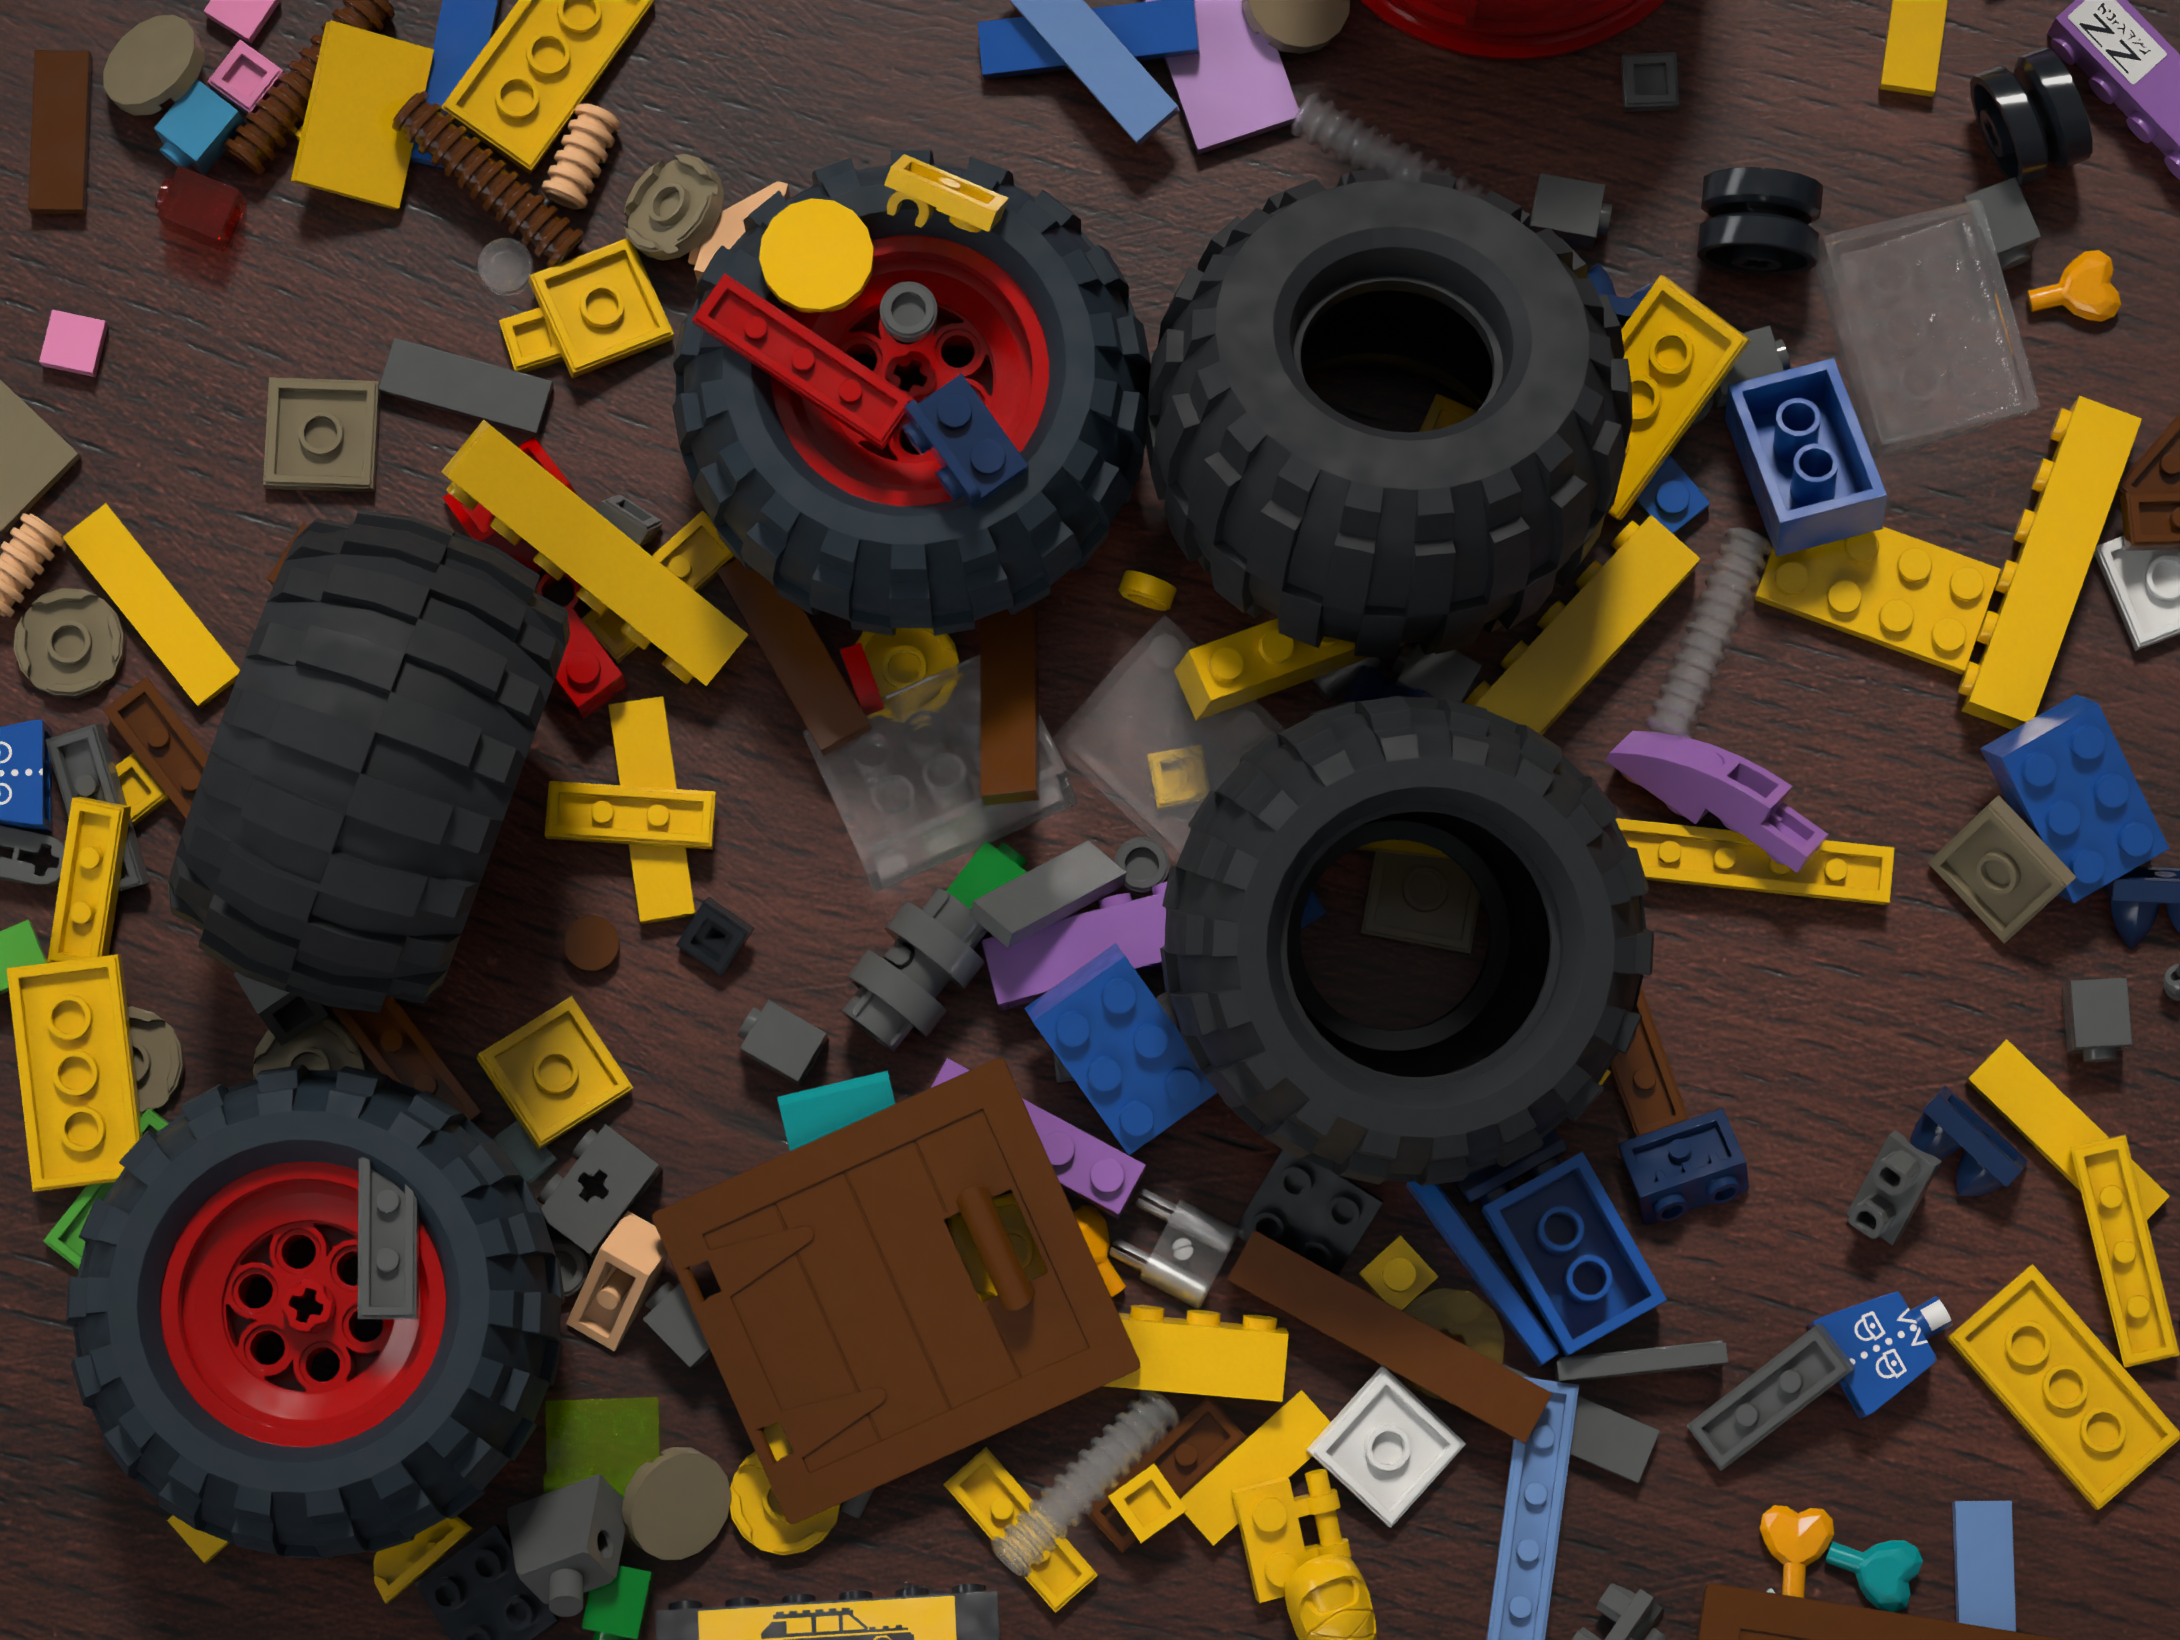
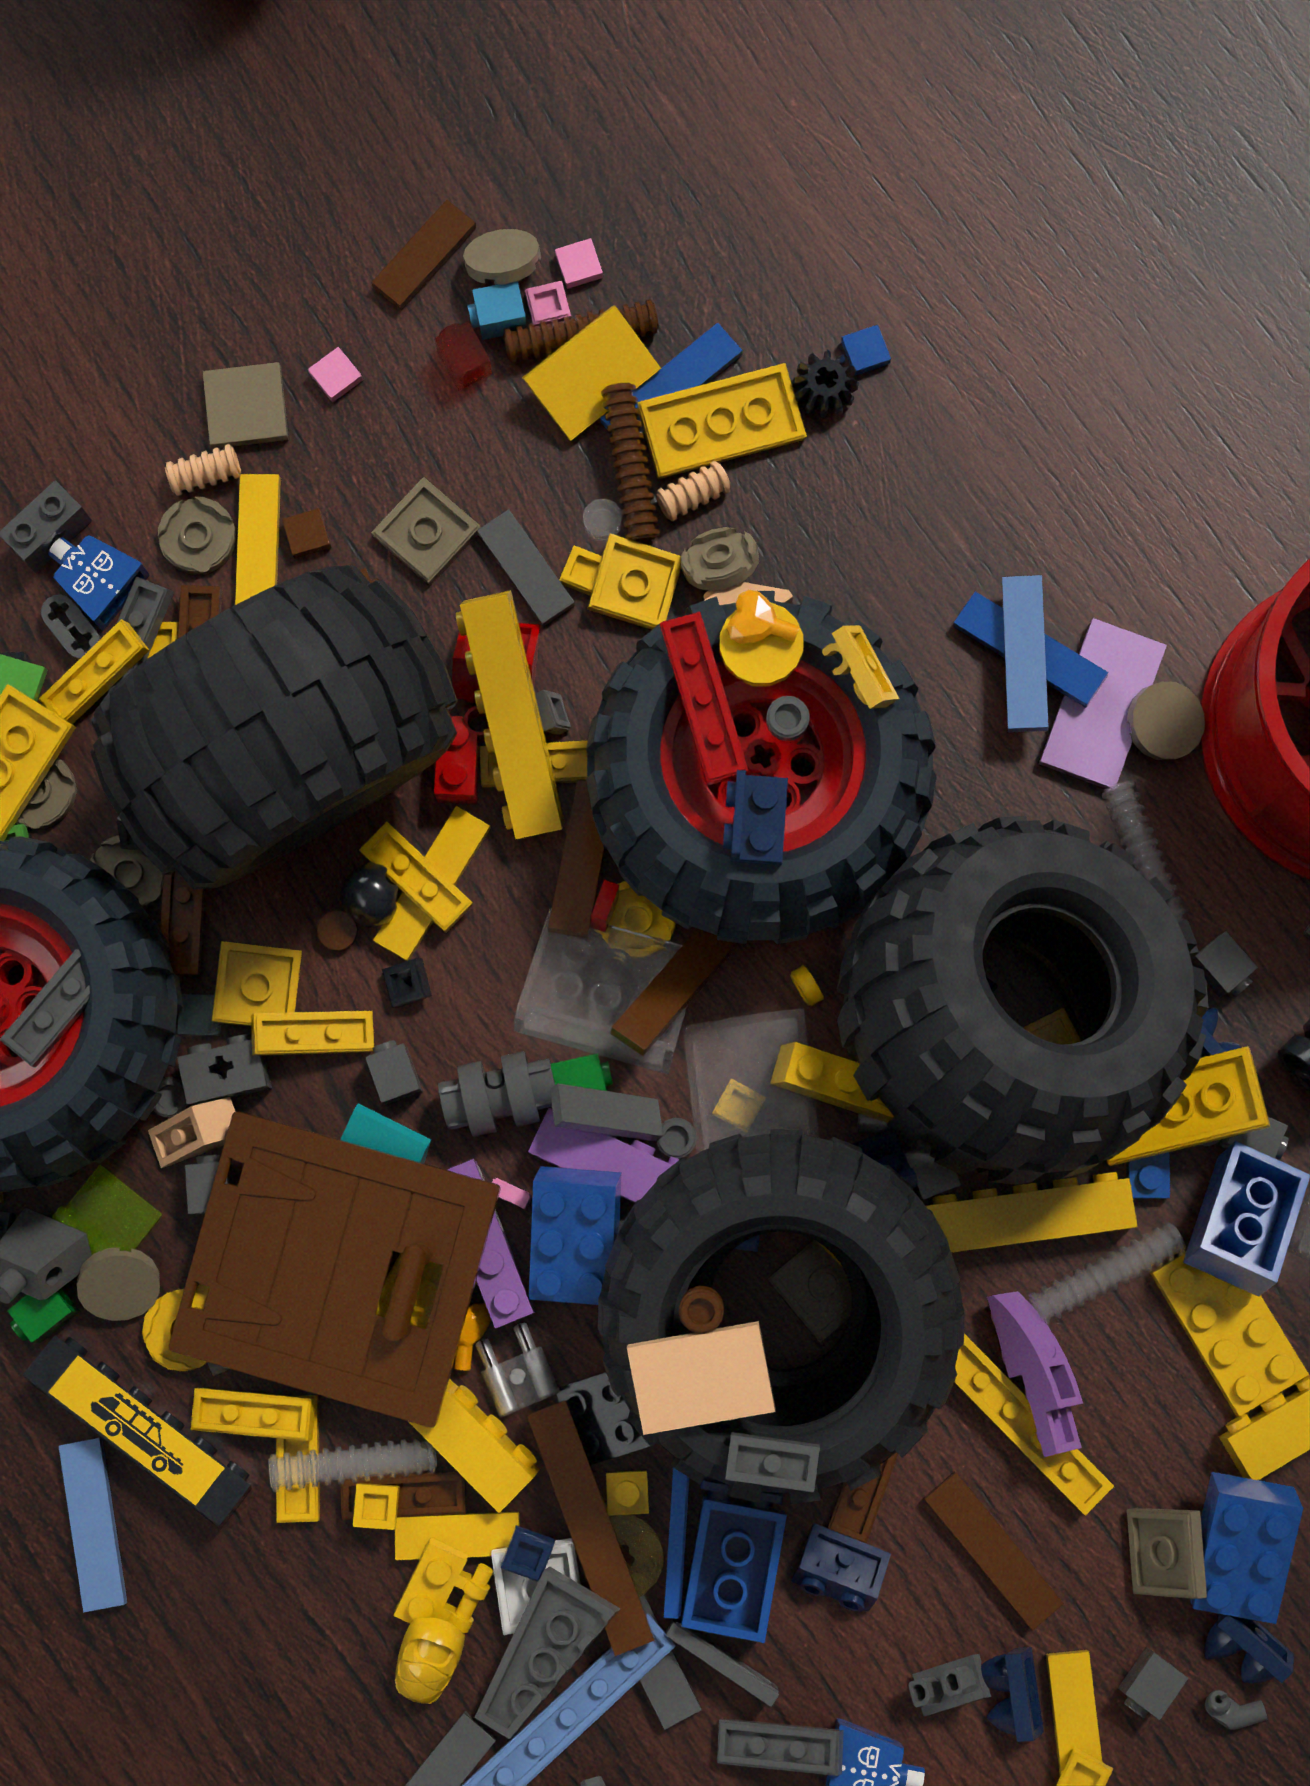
camera: 40 degrees right, 0 degrees up
(190, 543) = (306, 533): none -> reddish brown tile
(598, 875) = (369, 896): none -> black hair
(659, 1070) = (312, 1032): none -> yellow tile
(794, 233) = (758, 620): none -> light orange rock
(935, 1520) = (253, 1414): none -> yellow tile
(1023, 1063) = (513, 1194): none -> bright pink tile
(1324, 984) = (701, 1309): none -> reddish brown tile
(1347, 1417) = (527, 1553): none -> dark blue tile
(1381, 1054) = (701, 1378): none -> light nougat tile
(1443, 1490) = (546, 1644): none -> dark grey wing
(1522, 1080) = (772, 1462): none -> dark grey plate
(1825, 1018) = (993, 1551): none -> reddish brown tile

